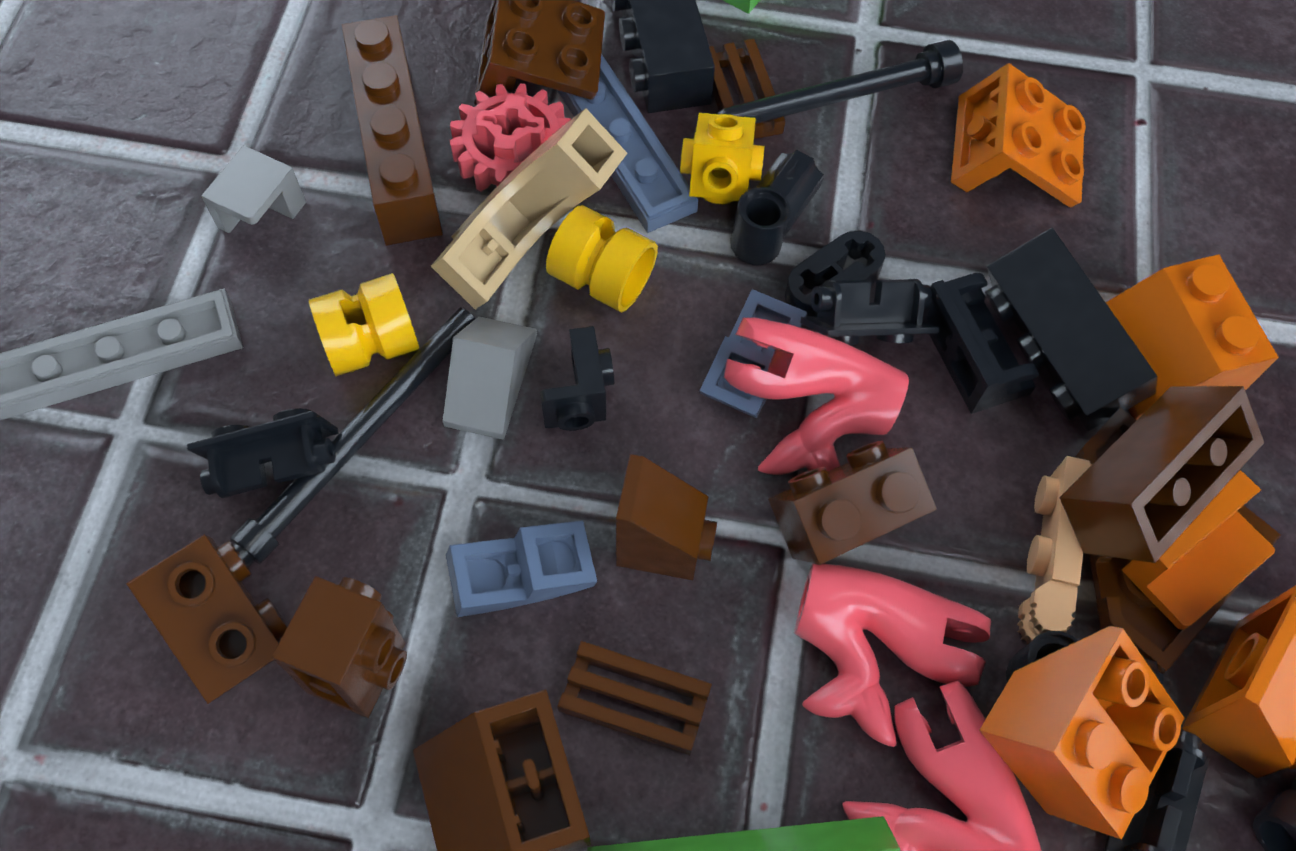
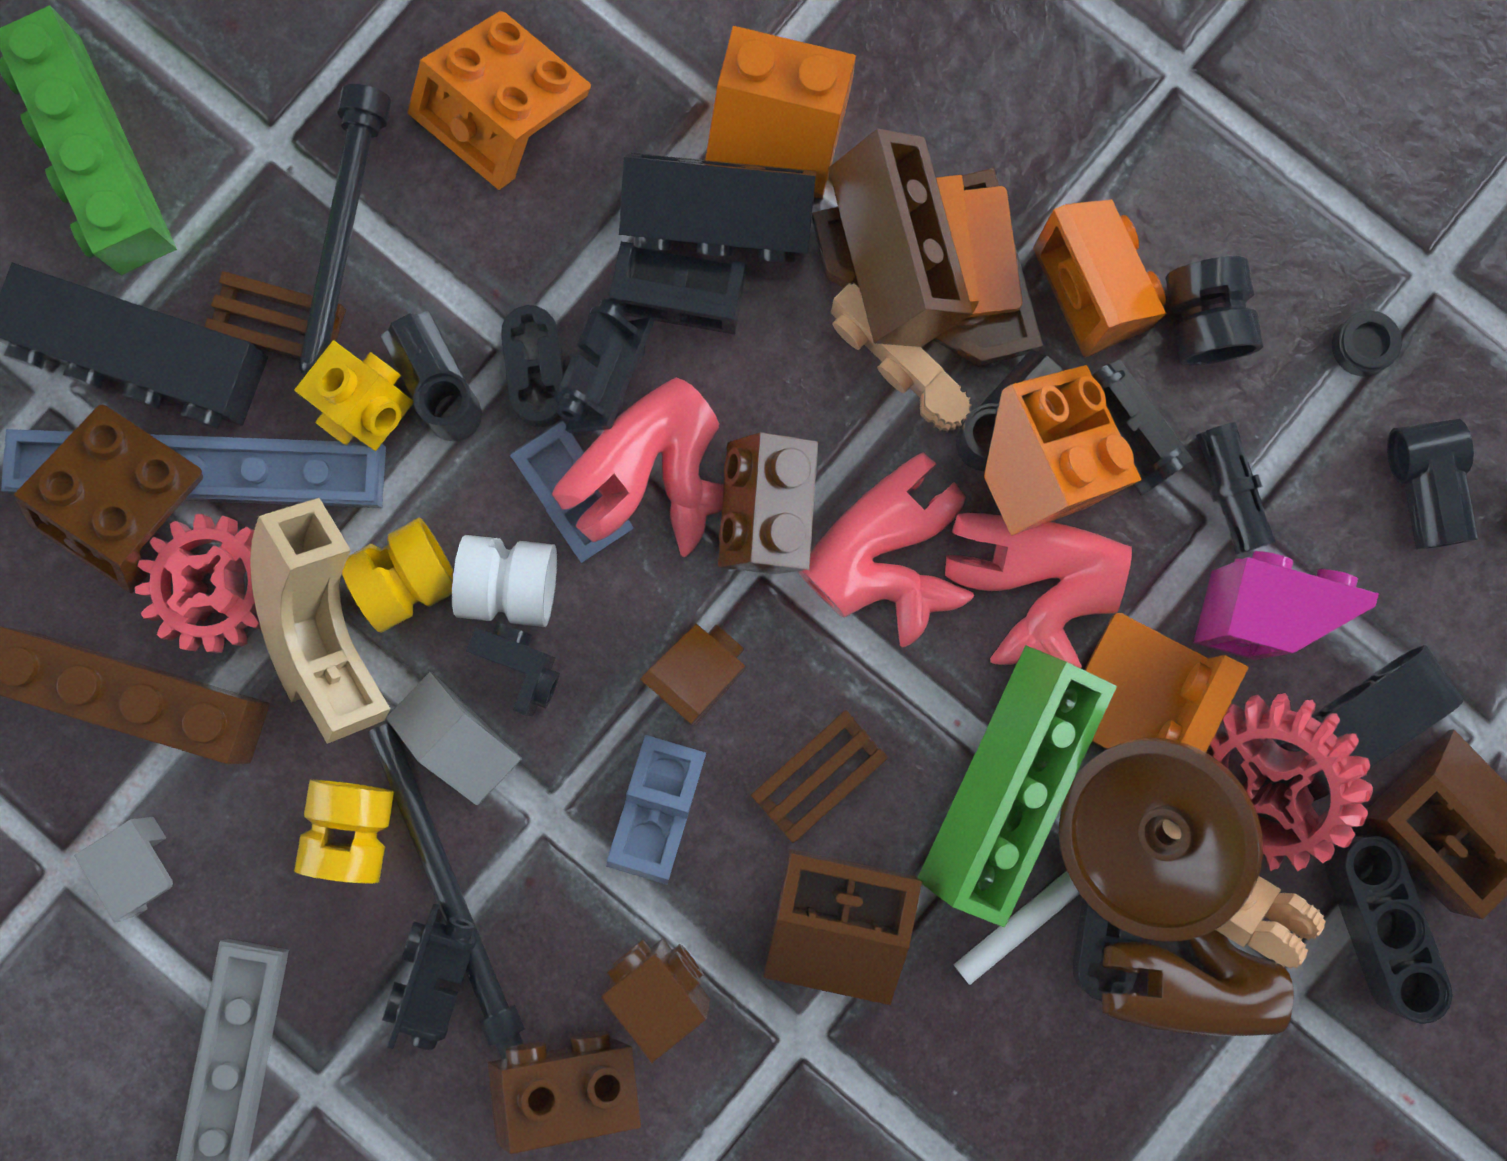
camera: 55 degrees left, 20 degrees up
(648, 337) = (504, 580): none -> white wheel

